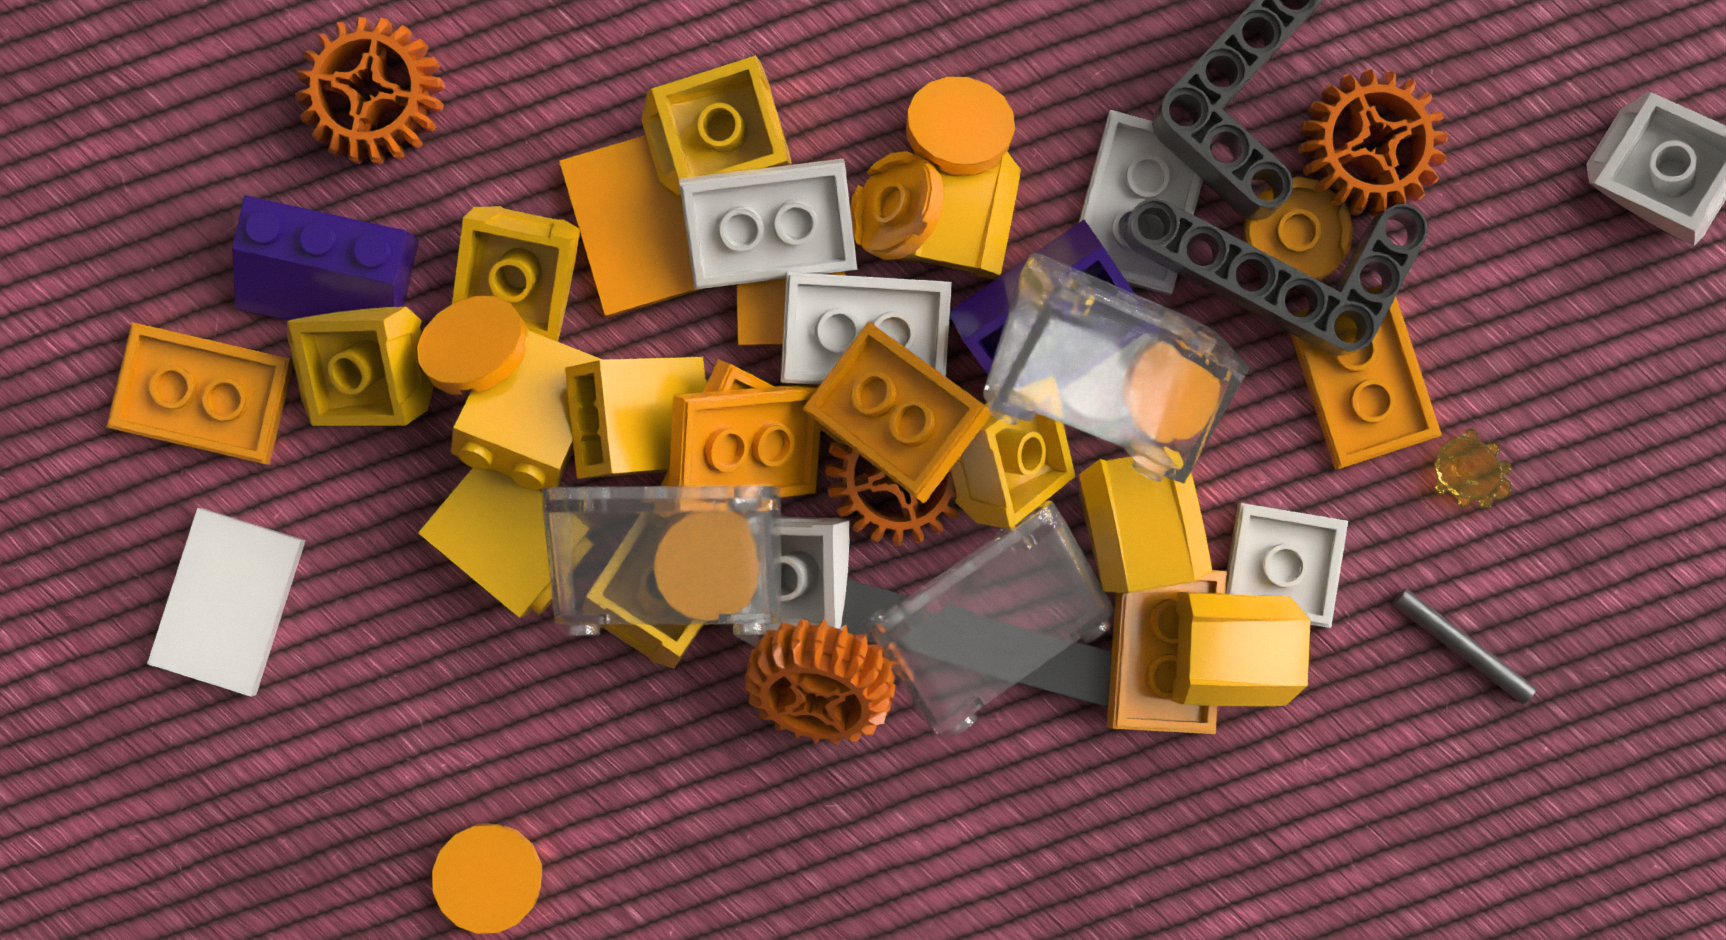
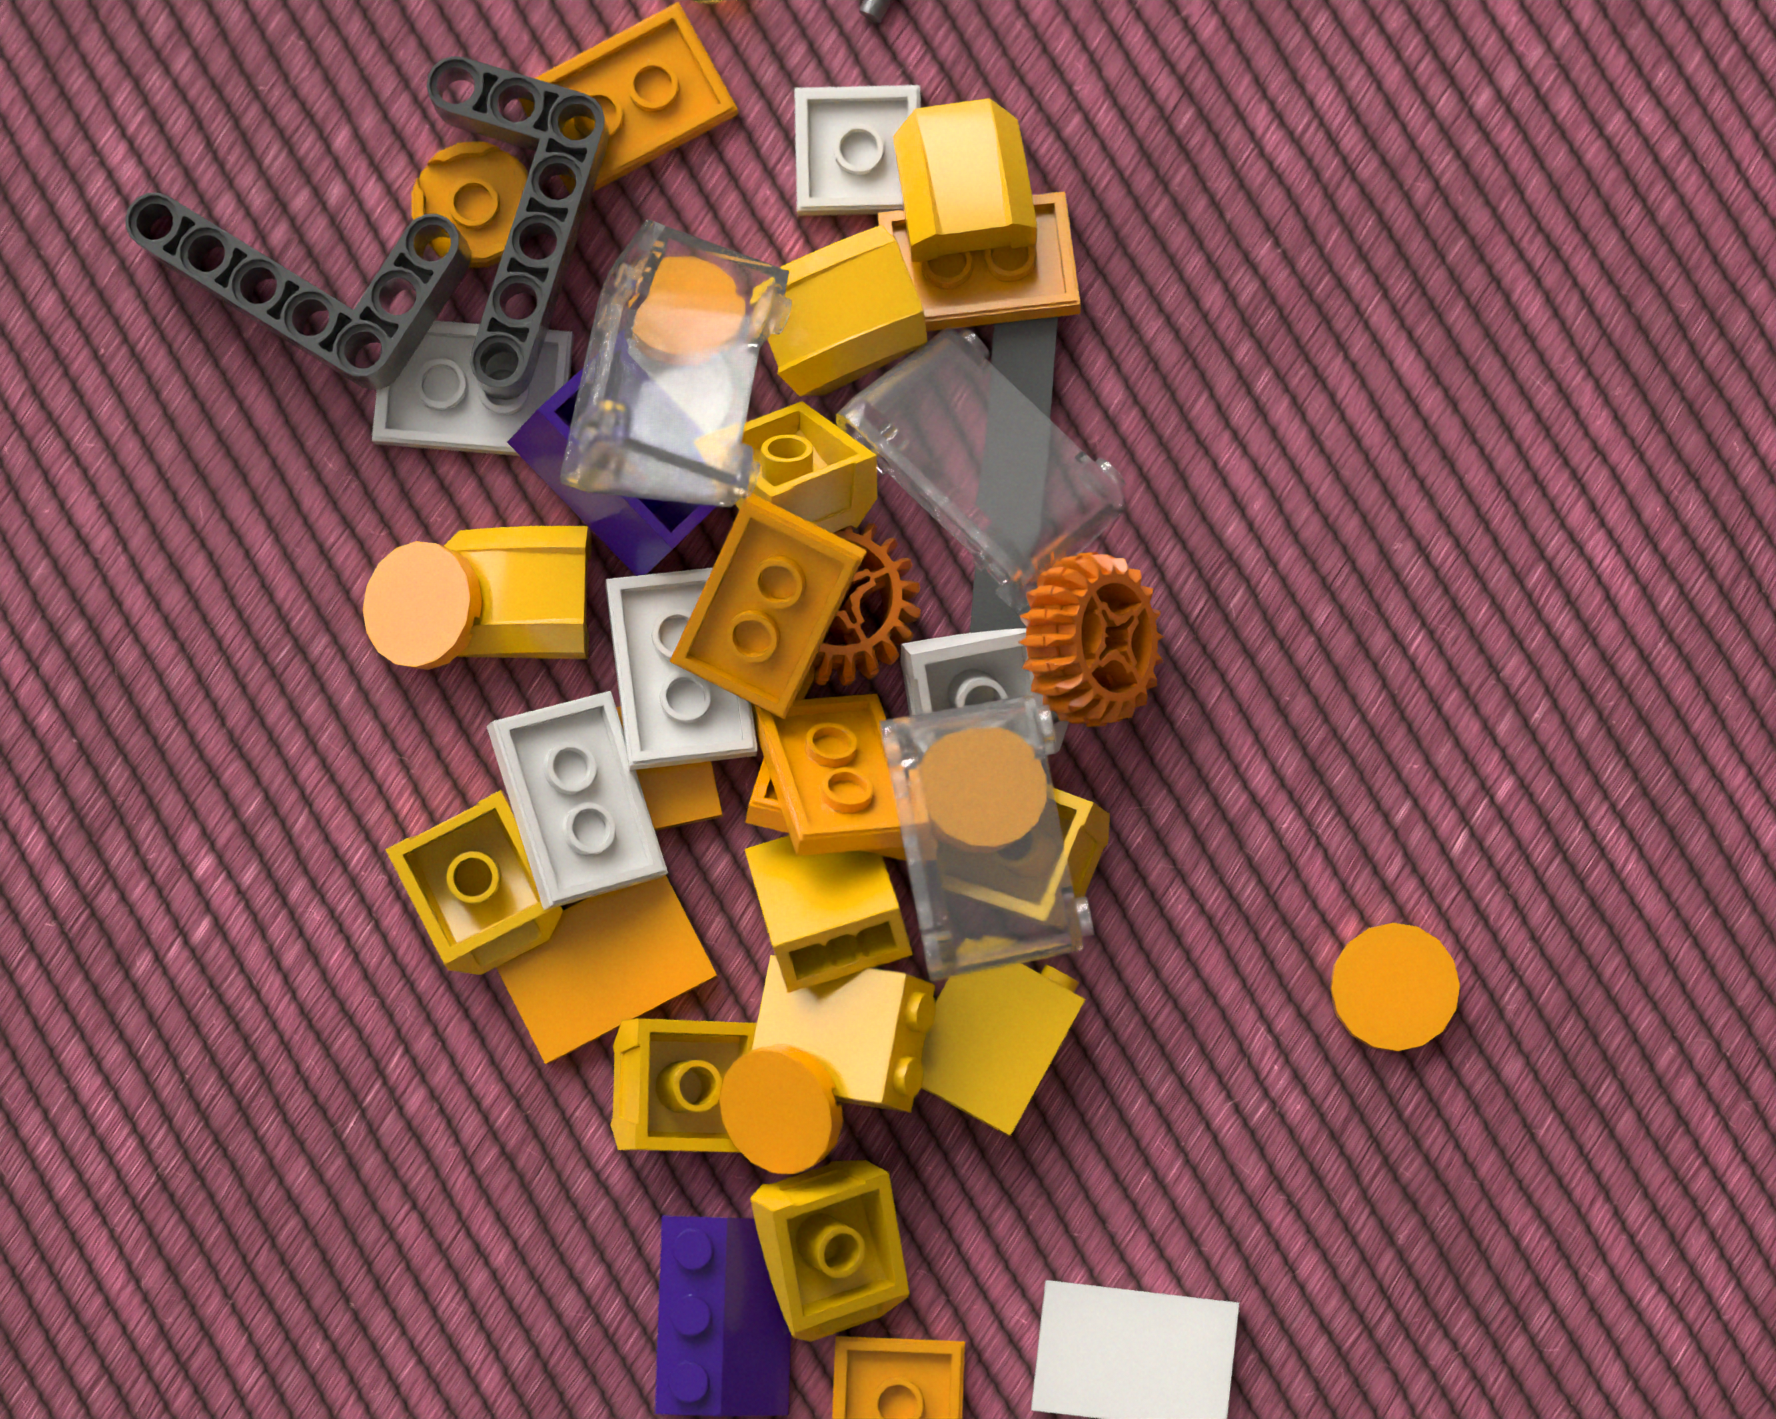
camera: 95 degrees left, 5 degrees down
(372, 67) = (504, 1271): orange gear -> none
(897, 206) = (528, 657): light orange tile -> none
(1379, 164) = (340, 152): orange gear -> none

